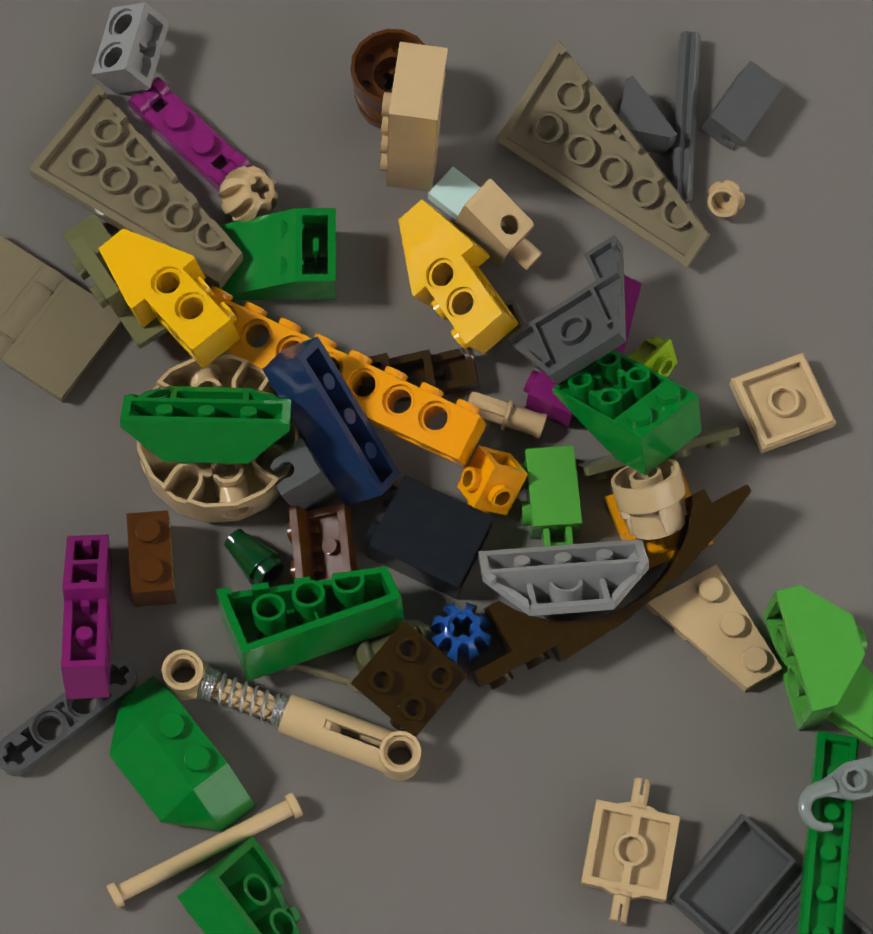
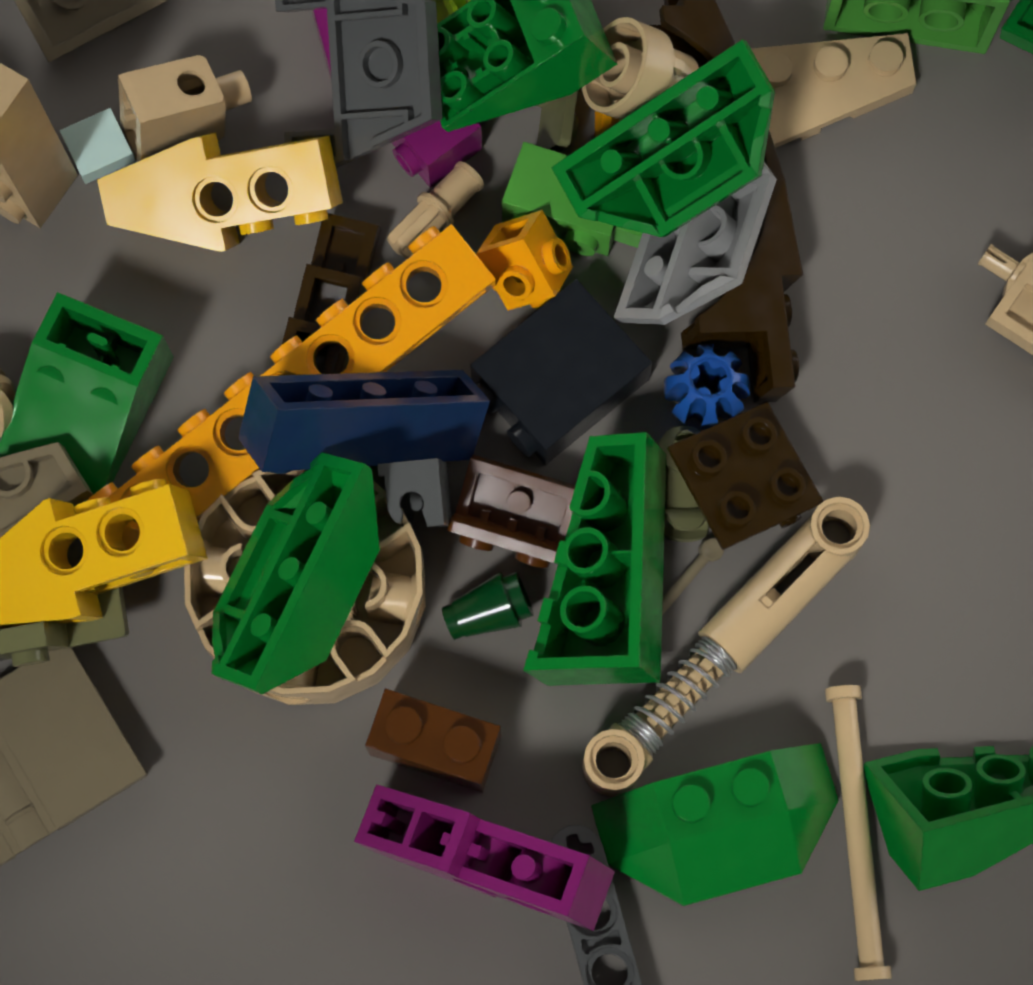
camera: 60 degrees left, 5 degrees up
(596, 533) = (676, 150): none -> green wedge

